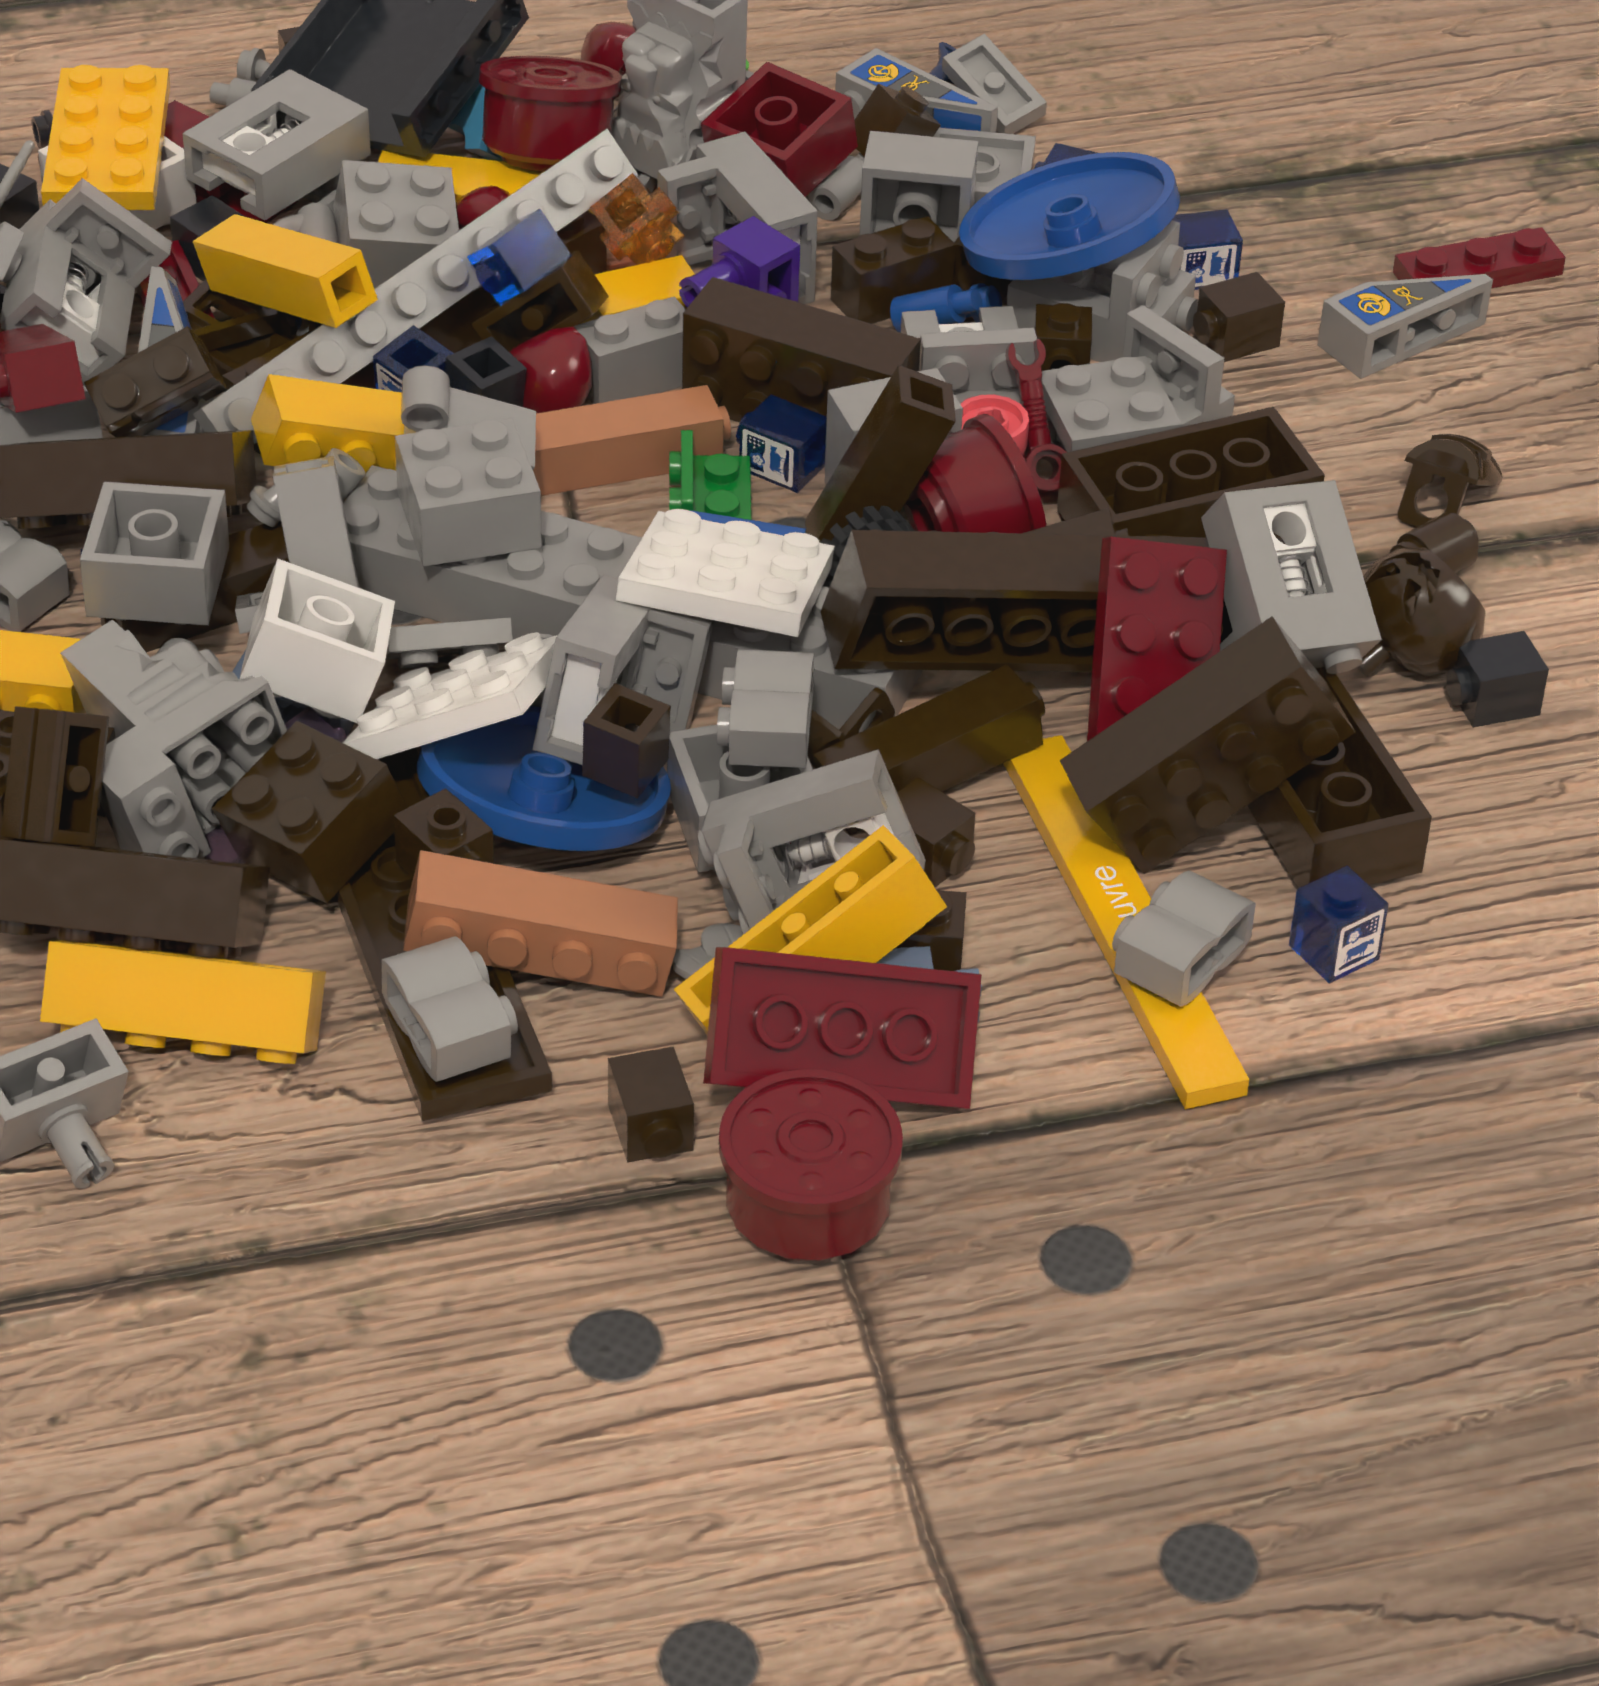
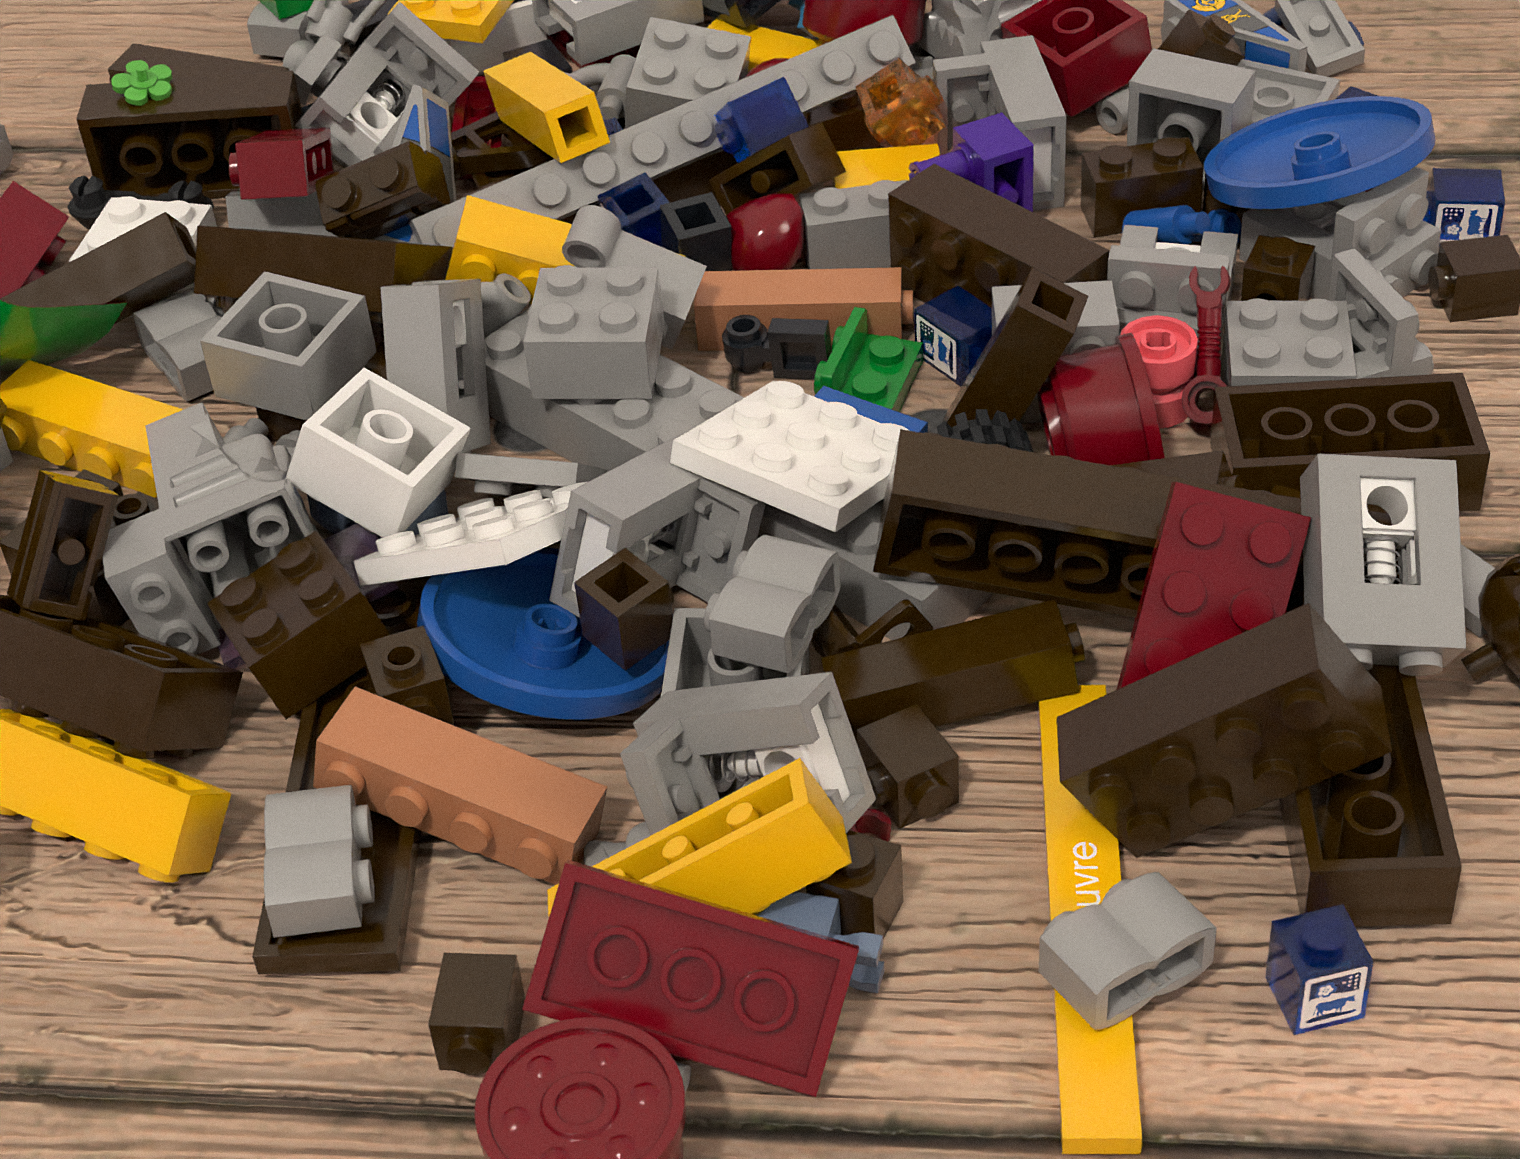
camera: 25 degrees right, 0 degrees up
(631, 481) = (790, 345): none -> black plate

